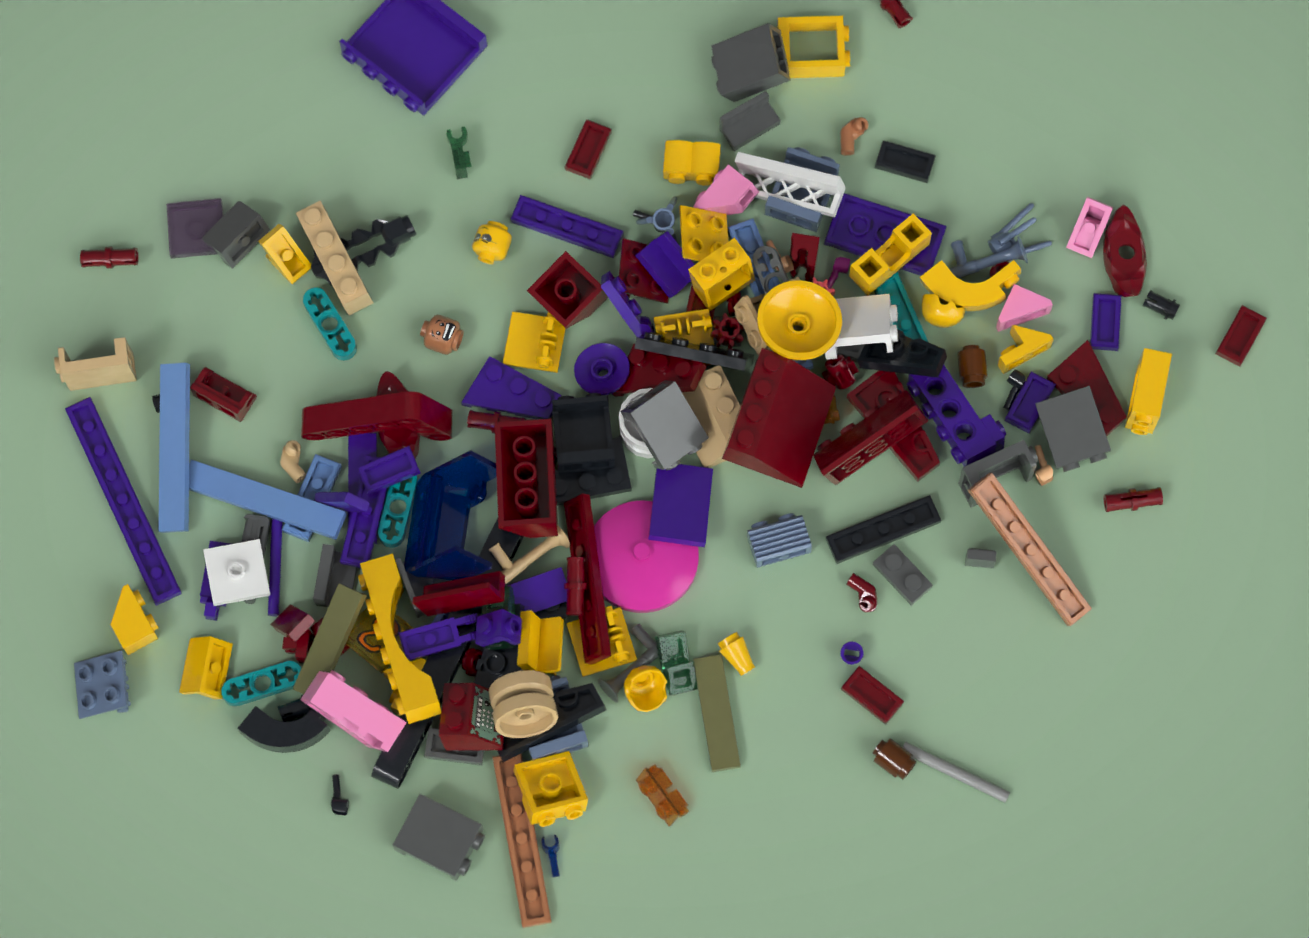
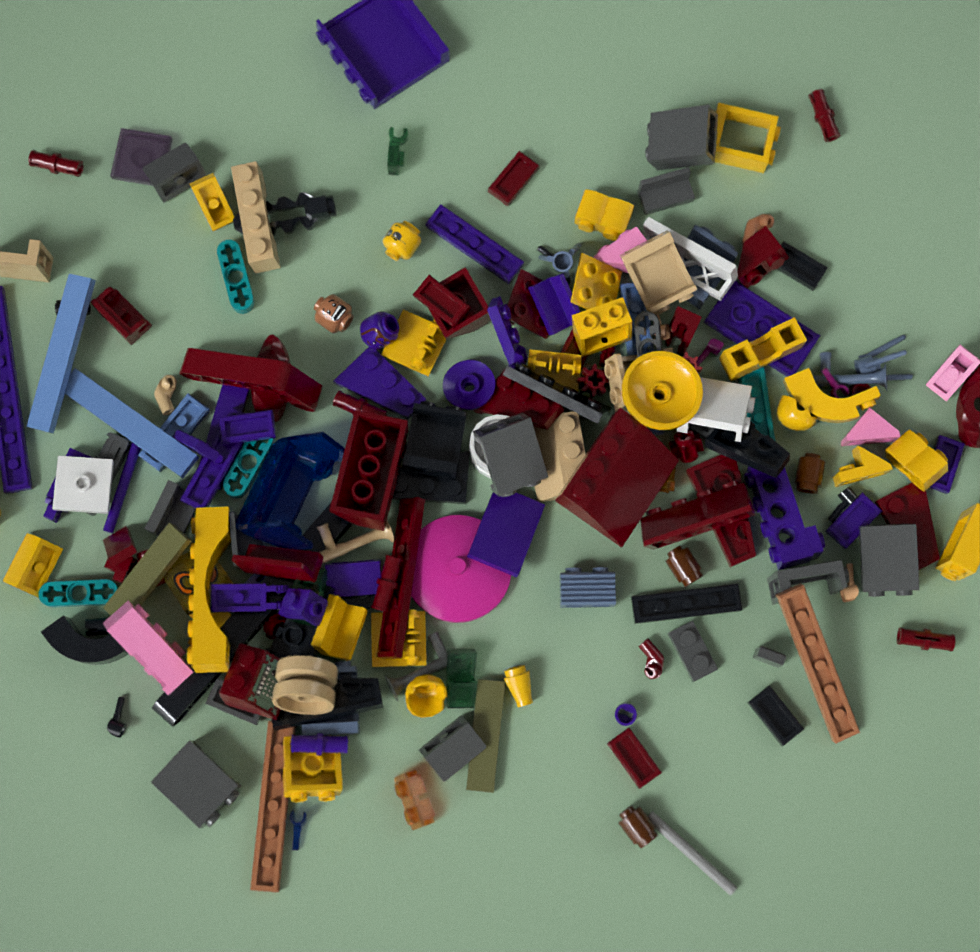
camera: 10 degrees right, 5 degrees up
(494, 338) = (379, 330): none -> dark purple head
(551, 291) = (441, 301): none -> dark red tile
(552, 761) = (319, 744): none -> dark purple pin
(687, 732) = (452, 748): none -> dark grey panel
(764, 205) = (658, 273): none -> tan panel
(862, 163) = (759, 257): none -> dark red slope
(870, 491) = (684, 565): none -> reddish brown brick
(972, 270) = (834, 384): none -> magenta hand
(1003, 615) = (775, 715): none -> black tile
(1076, 323) = (917, 460): none -> yellow brick

